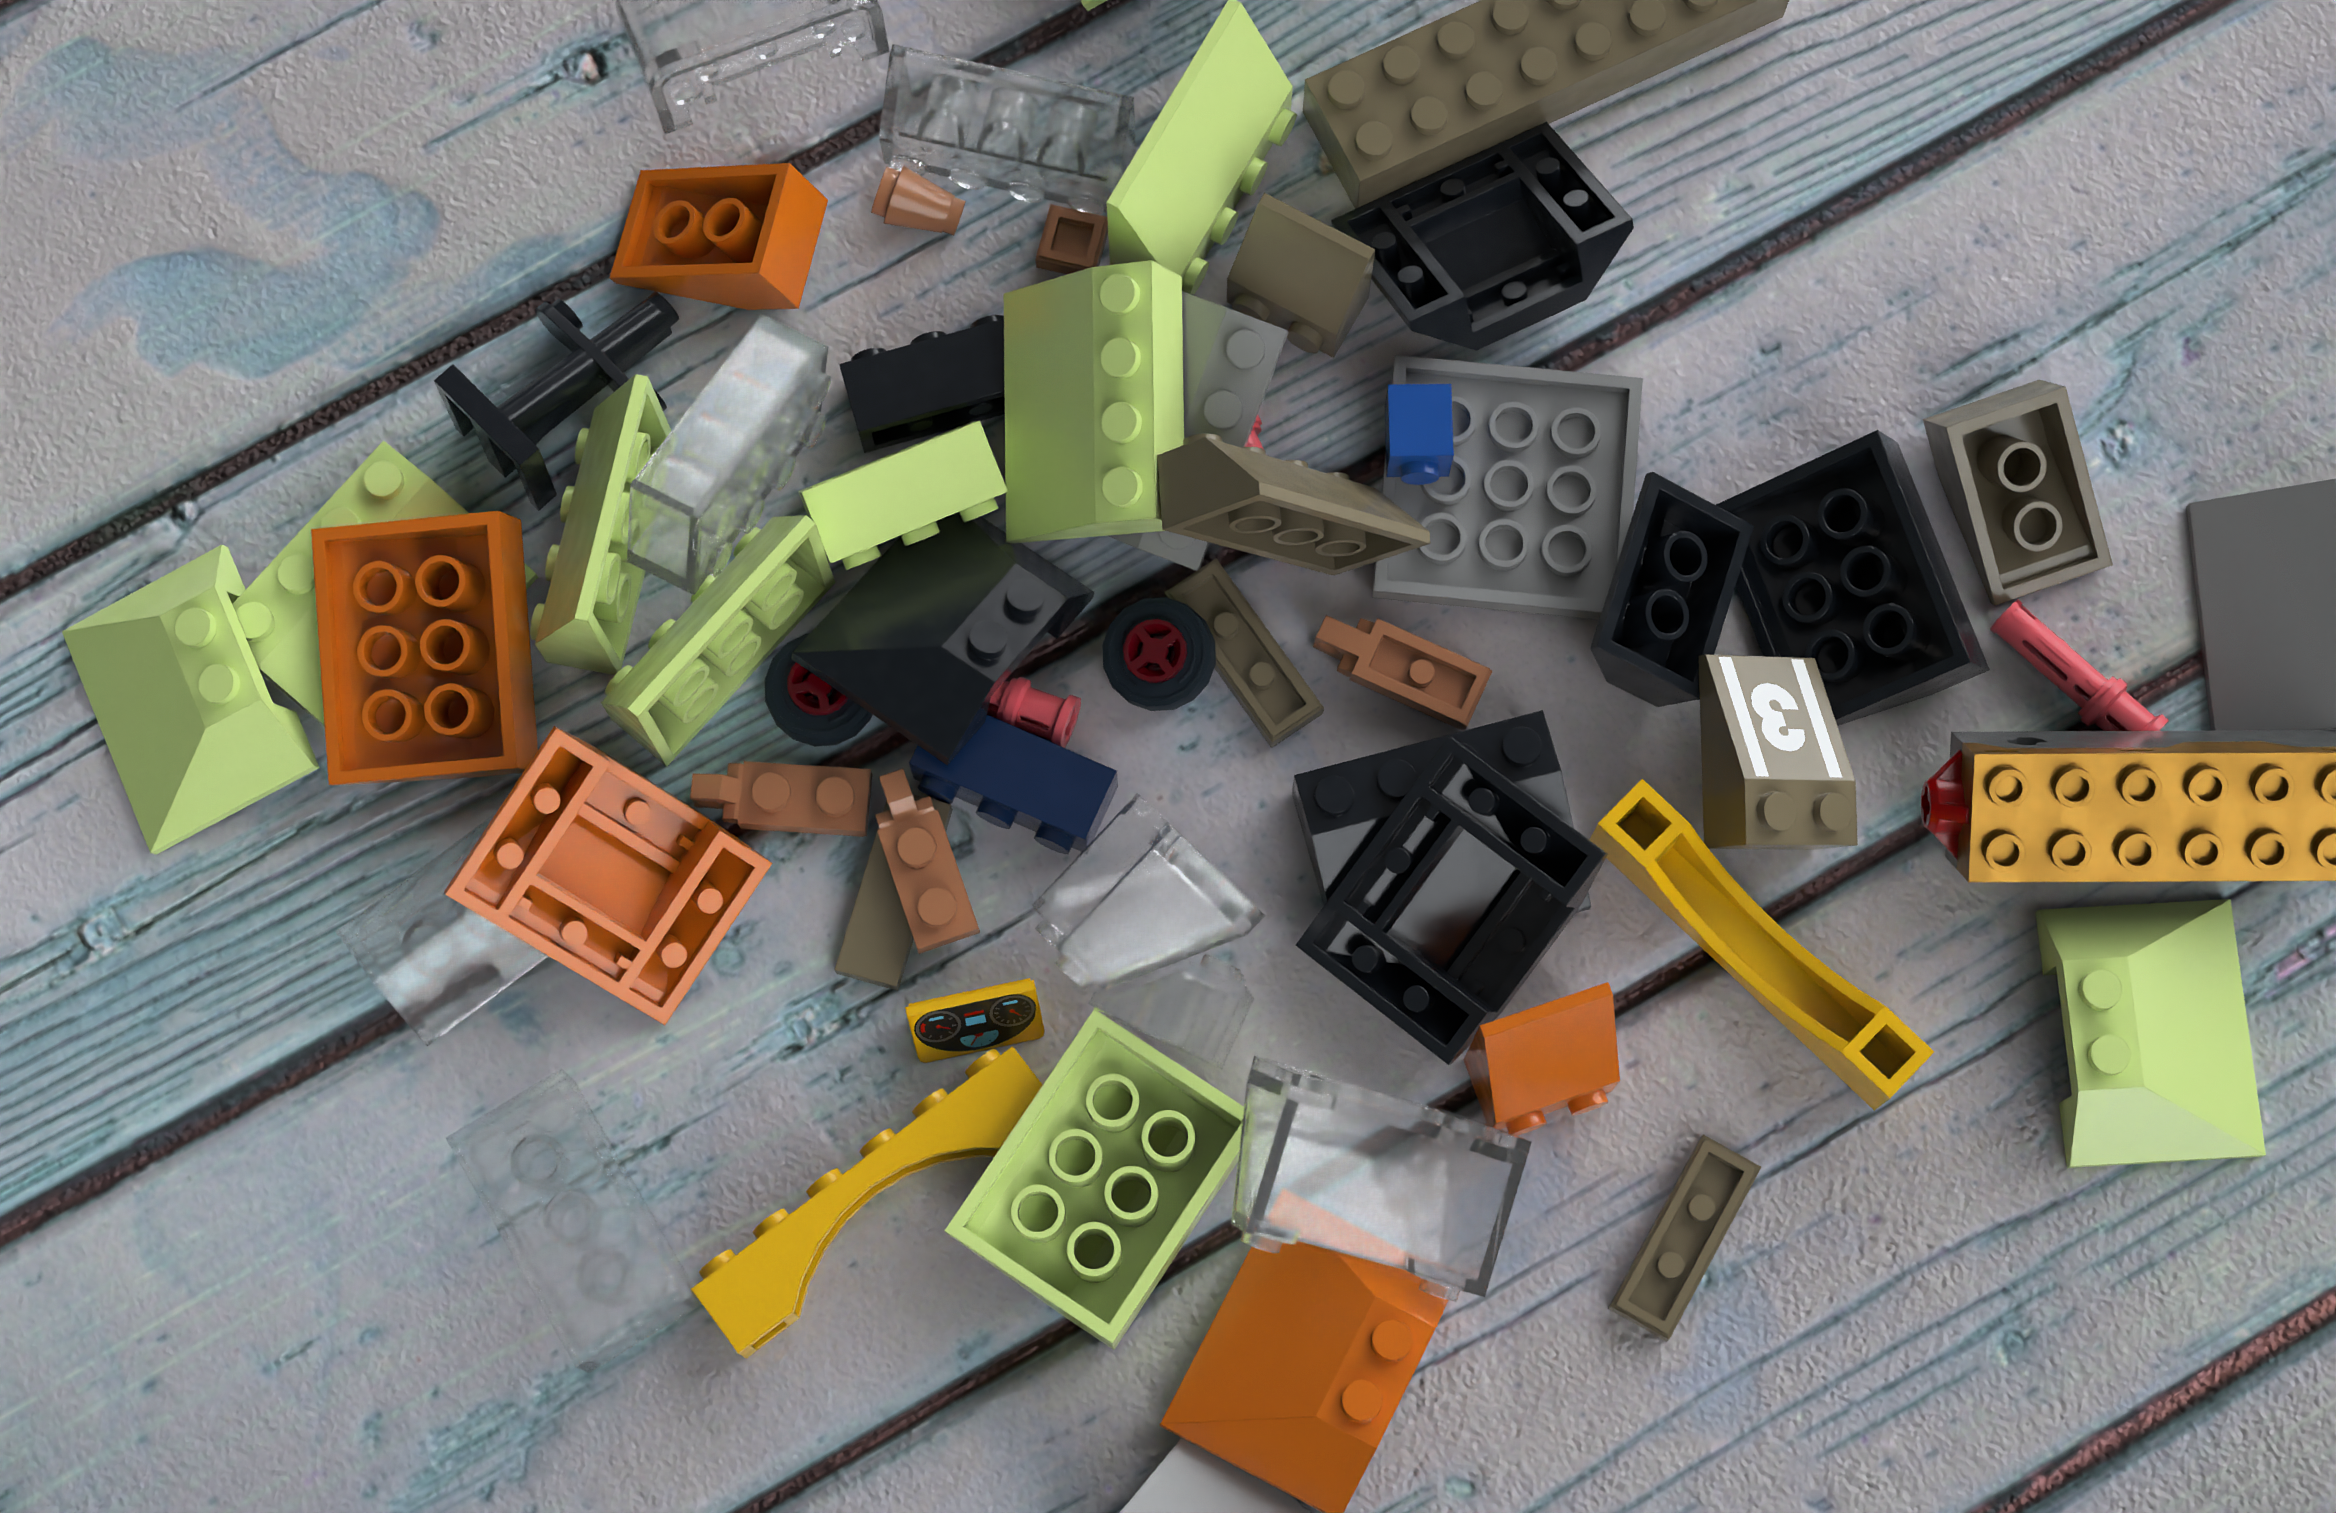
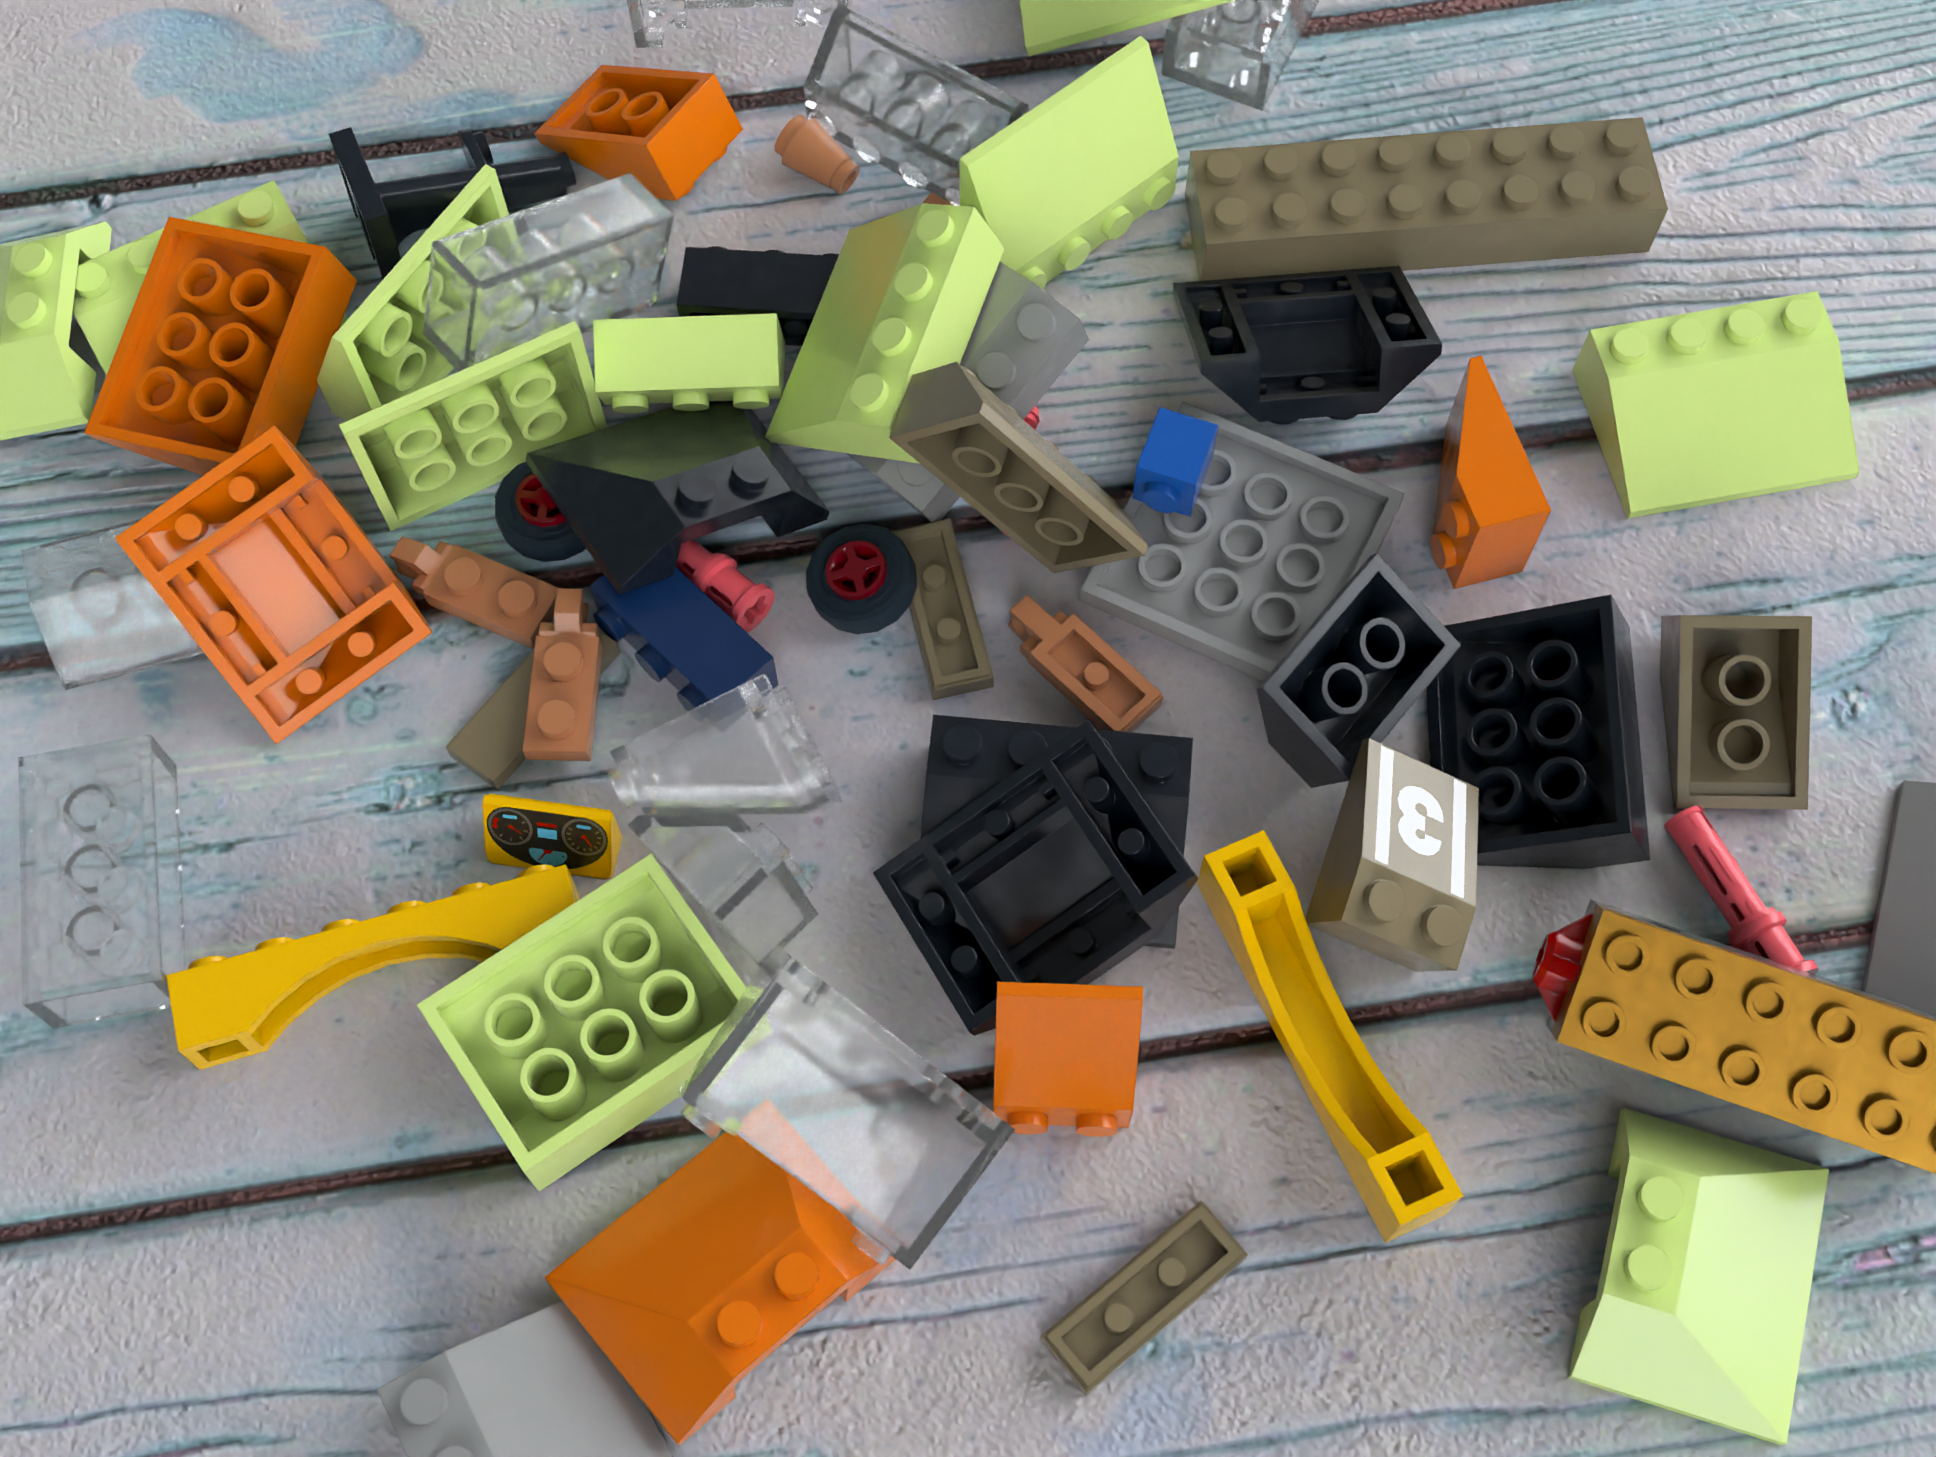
camera: 20 degrees right, 10 degrees down
(1300, 276) = (1127, 305): dark tan slope -> none
(1719, 354) = (1487, 489): none -> orange slope
(1906, 174) = (1719, 404): none -> yellowish green slope

